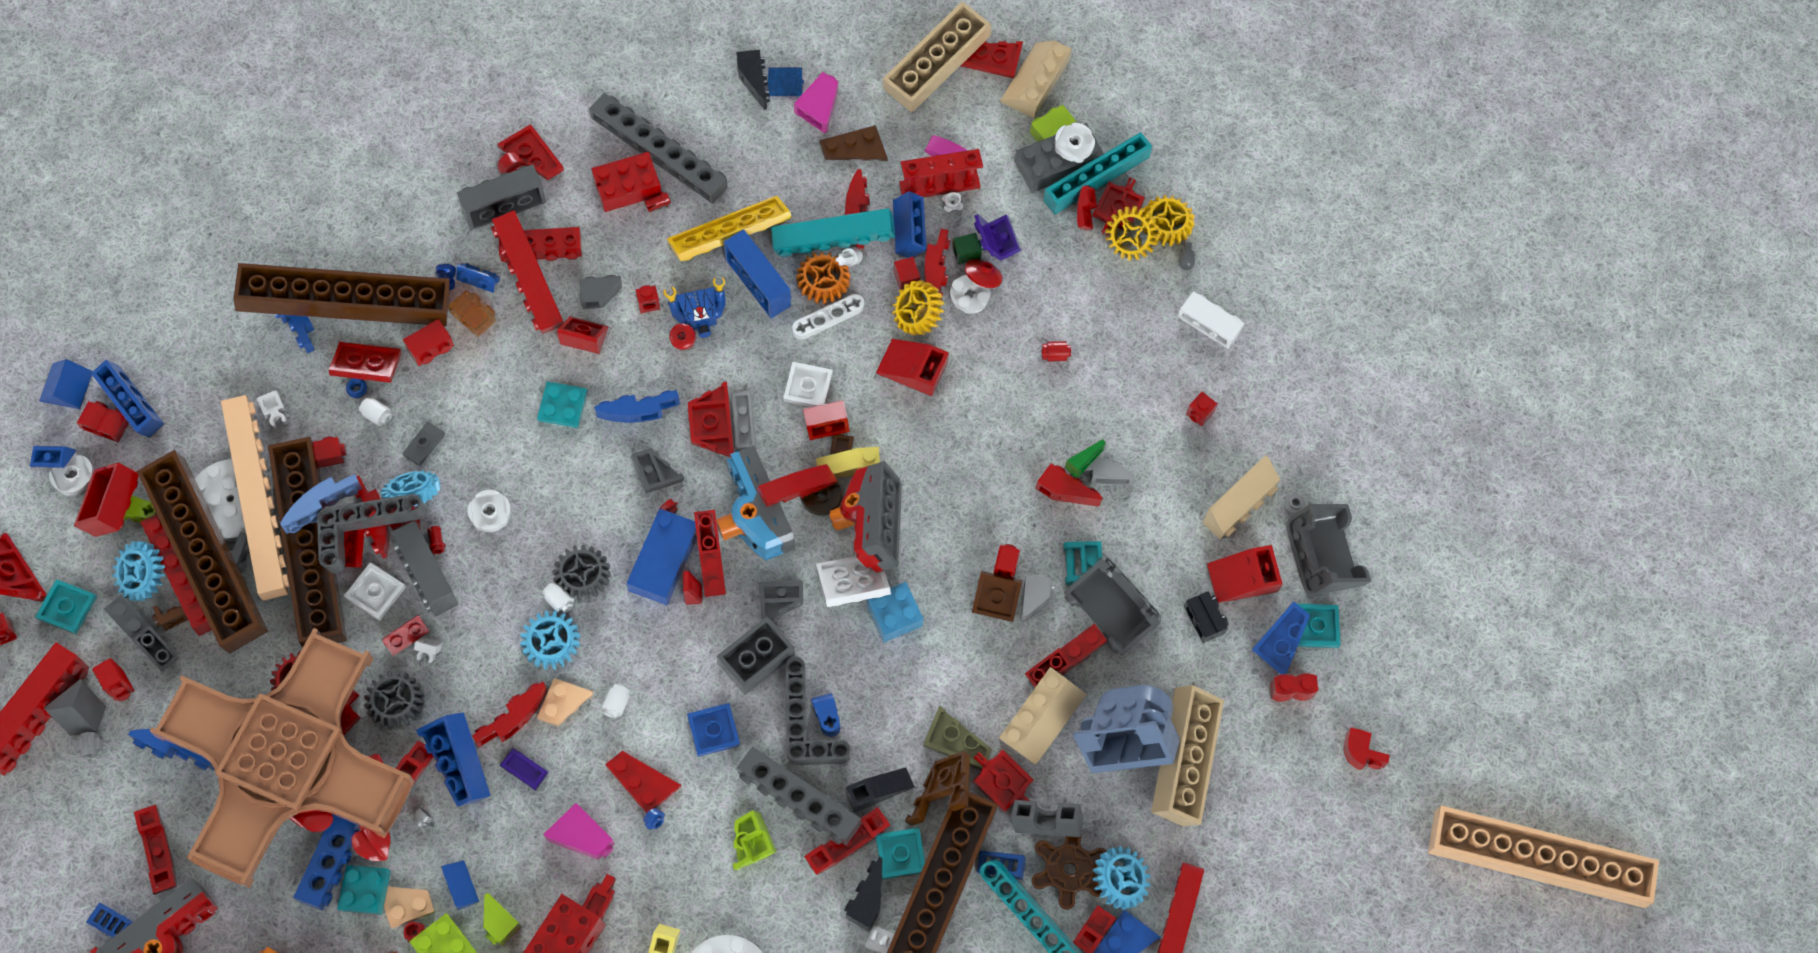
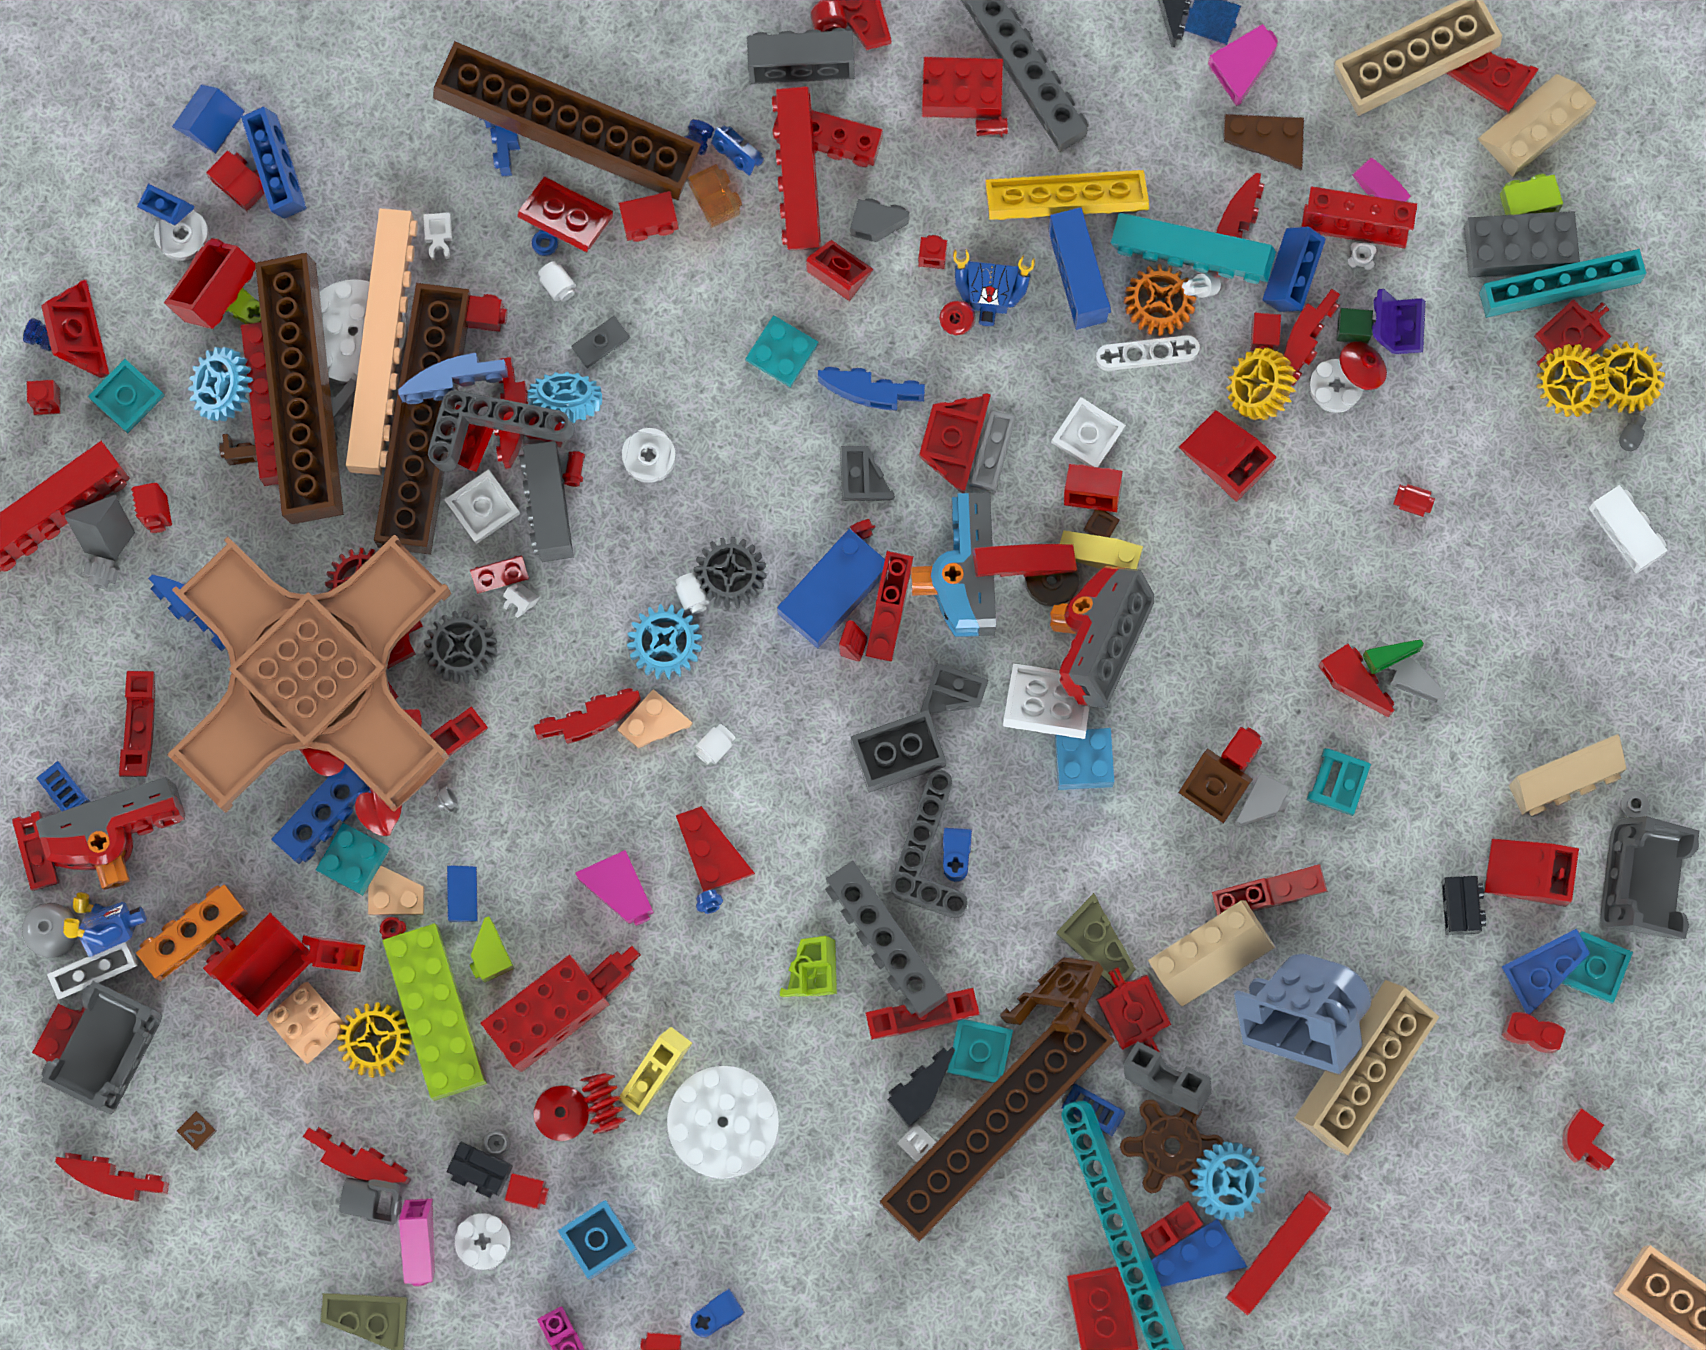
camera: 30 degrees right, 10 degrees up
(141, 633) = (200, 460): dark grey slope -> none
(456, 758) = (507, 745): blue wedge -> none
(524, 769) = (581, 785): dark purple tile -> none
(713, 729) = (816, 821): blue plate -> none
(878, 788) = (984, 965): black slope -> none
(1074, 152) = (1545, 220): white plate -> none
(1086, 202) = (1531, 317): red slope -> none
(1113, 604) = (1354, 849): dark grey windscreen -> none
(1201, 409) = (1566, 641): red brick -> none

